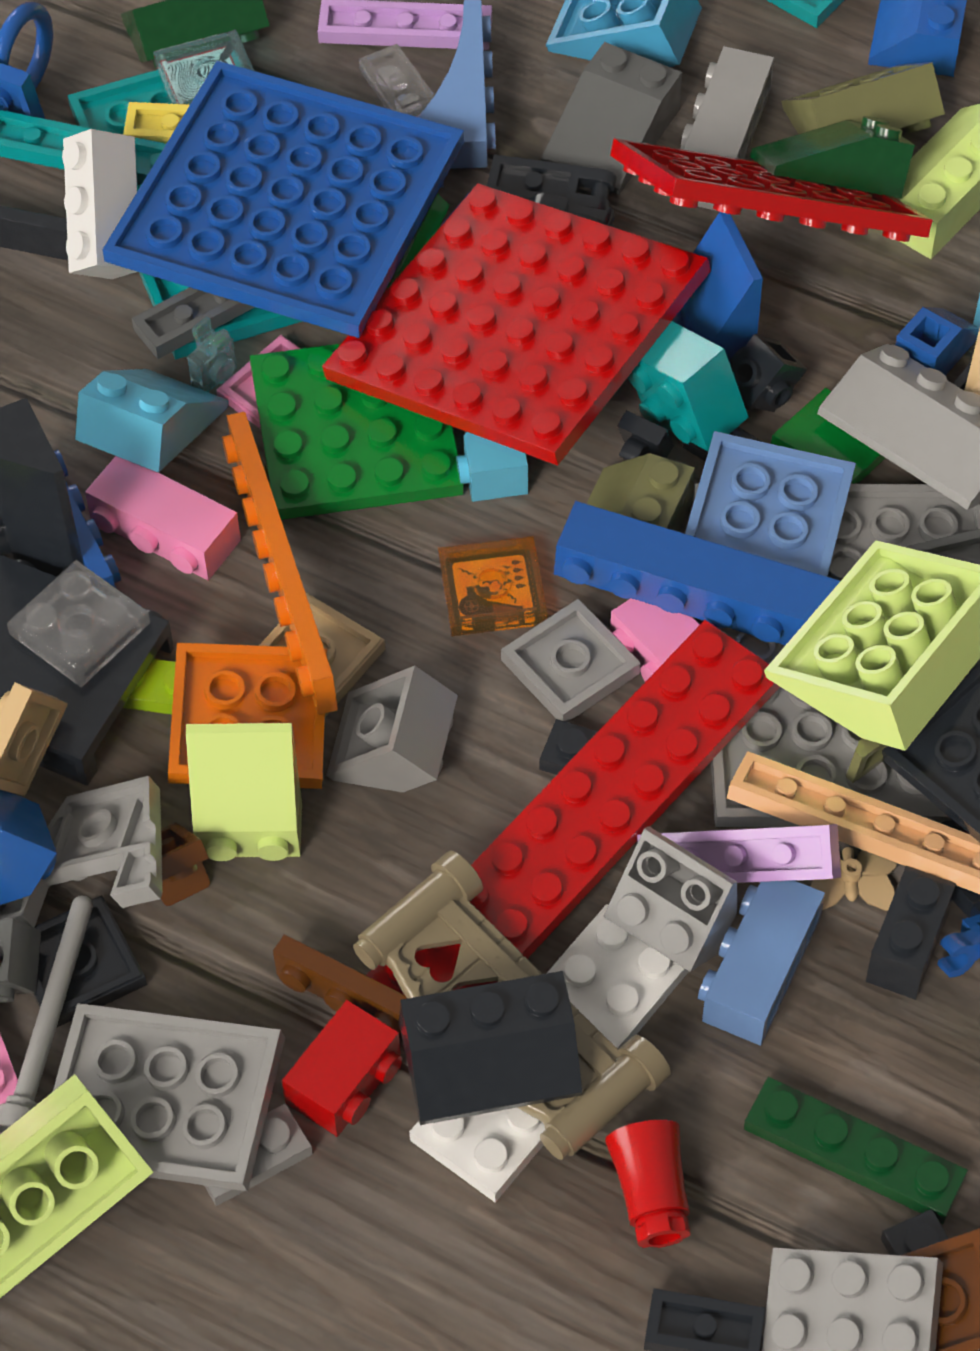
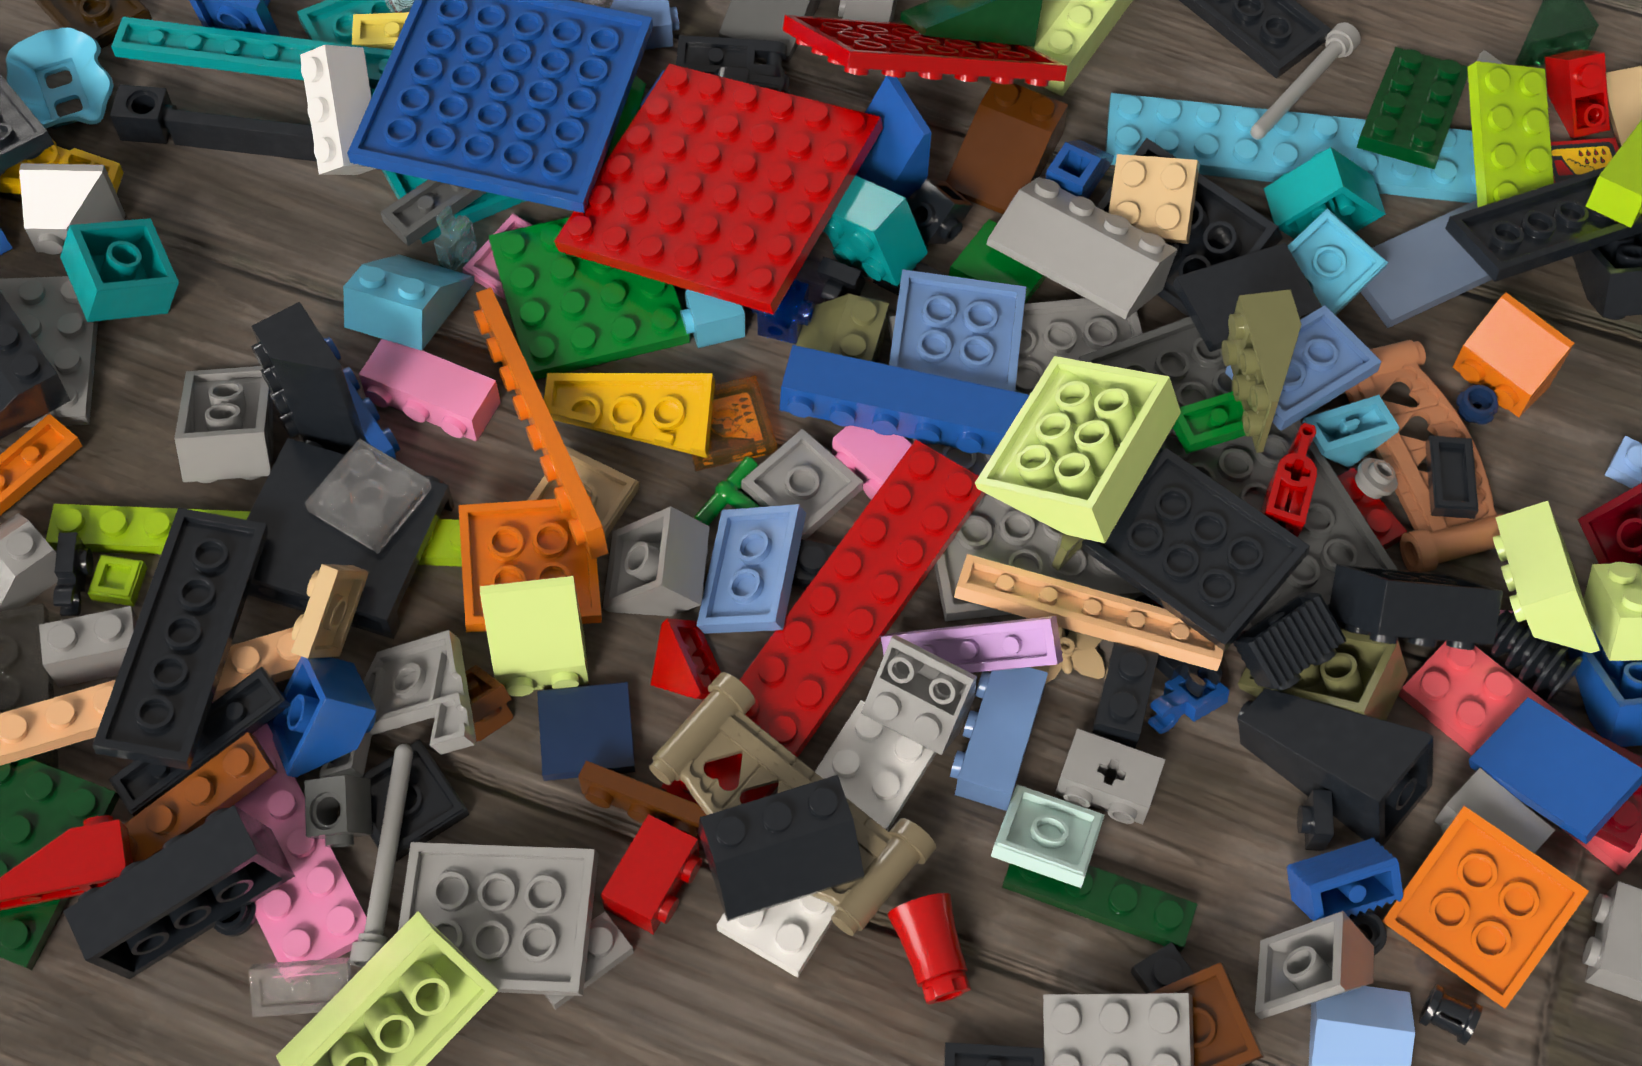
camera: 10 degrees left, 5 degrees up
(289, 898) = (583, 727): none -> dark blue tile
(400, 558) = (643, 407): none -> yellow wing
(409, 837) = (684, 660): none -> red slope
(485, 662) = (728, 493): none -> green piece
(499, 747) = (751, 569): none -> medium blue plate
(578, 471) = (790, 315): none -> clear blue brick
(802, 1074) = (1048, 836): none -> light aqua tile
(857, 304) = (1006, 145): none -> reddish brown slope
(909, 1017) = (1133, 774): none -> light grey brick

